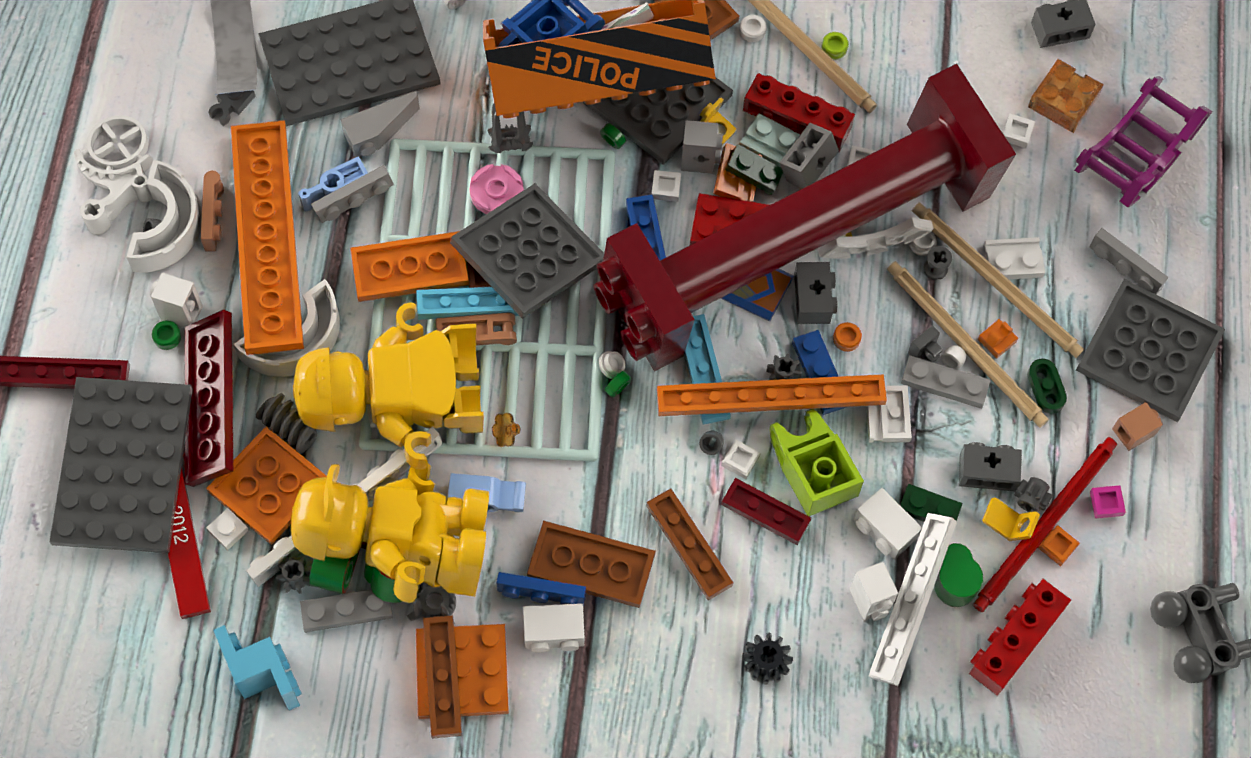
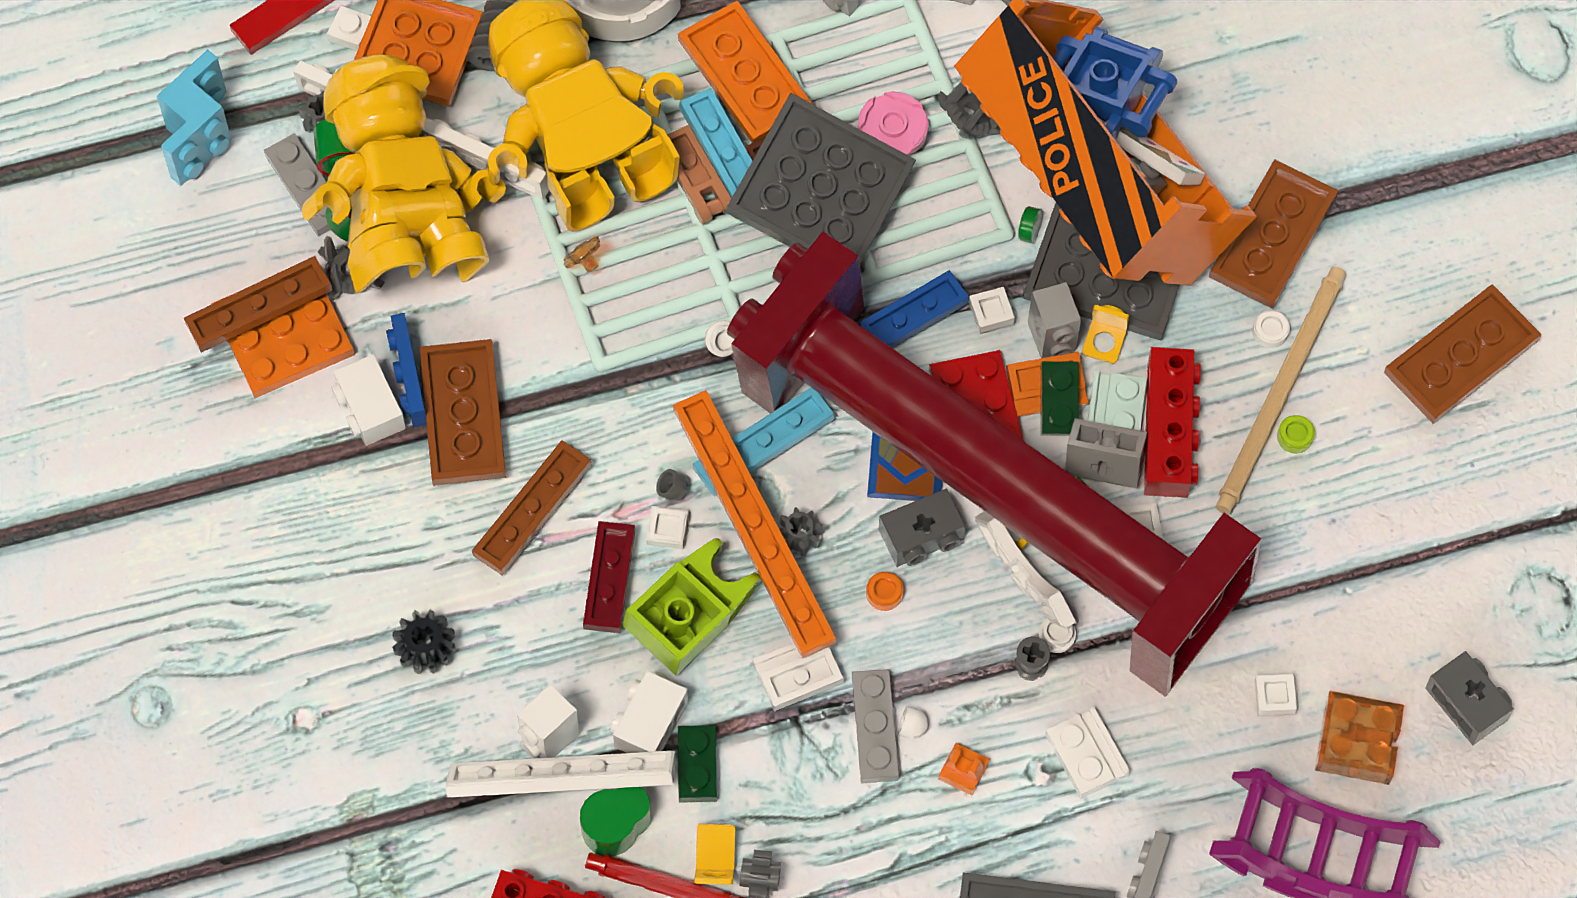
camera: 70 degrees right, 0 degrees up
(502, 494) = (503, 270): light blue piece -> none
(618, 384) = (700, 354): green tile -> none
(815, 359) = (836, 565): blue plate -> none
(926, 345) = (910, 682): dark grey tile -> none
(970, 346) = (937, 734): tan piece -> none
(976, 472) = (771, 790): dark grey brick -> none
(999, 281) = (1040, 737): tan piece -> none
(1048, 387) = (919, 846): dark green plate -> none

